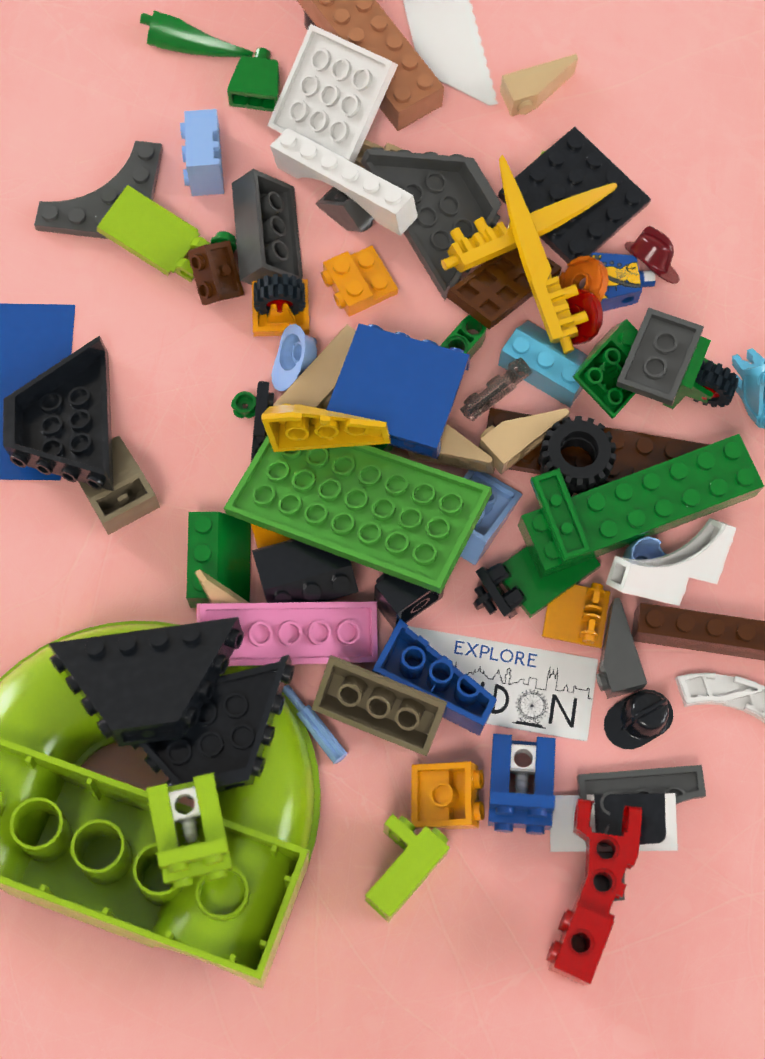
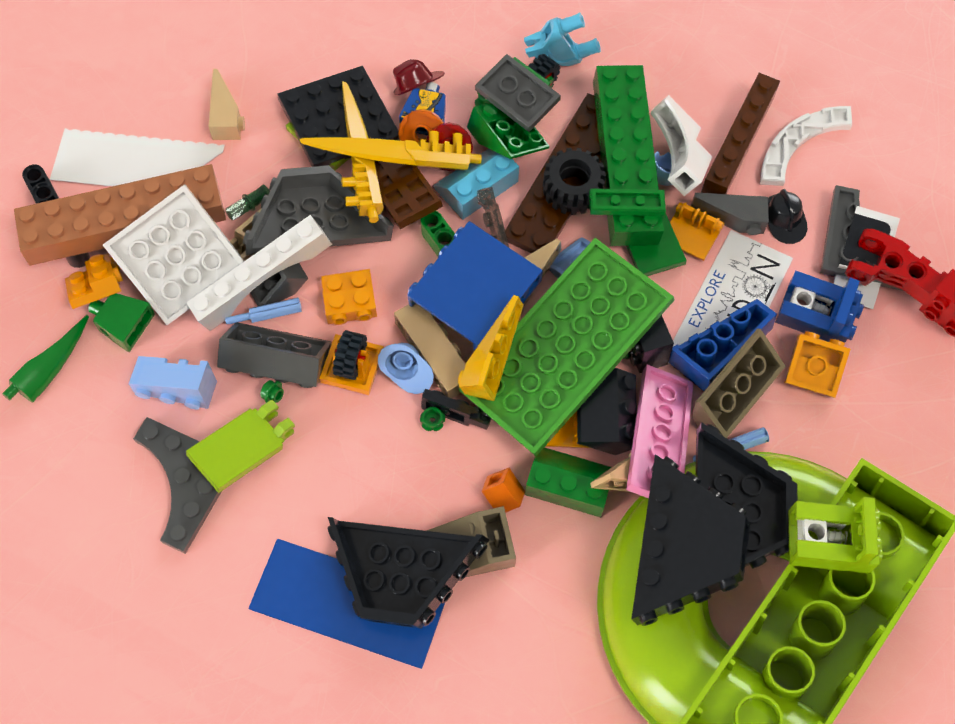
camera: 70 degrees left, 5 degrees down
(184, 496) = (503, 490): none -> orange panel
(215, 272) = (302, 405): reddish brown bracket -> none
(278, 40) = (95, 283): none -> light orange plate
(315, 211) = (268, 311): none -> light blue axle
(410, 869) = (873, 406): lime brick -> none
(428, 144) = (247, 203): none -> clear green axle
(506, 602) = (672, 272): black hips -> none
(518, 437) = (544, 220): tan slope -> none

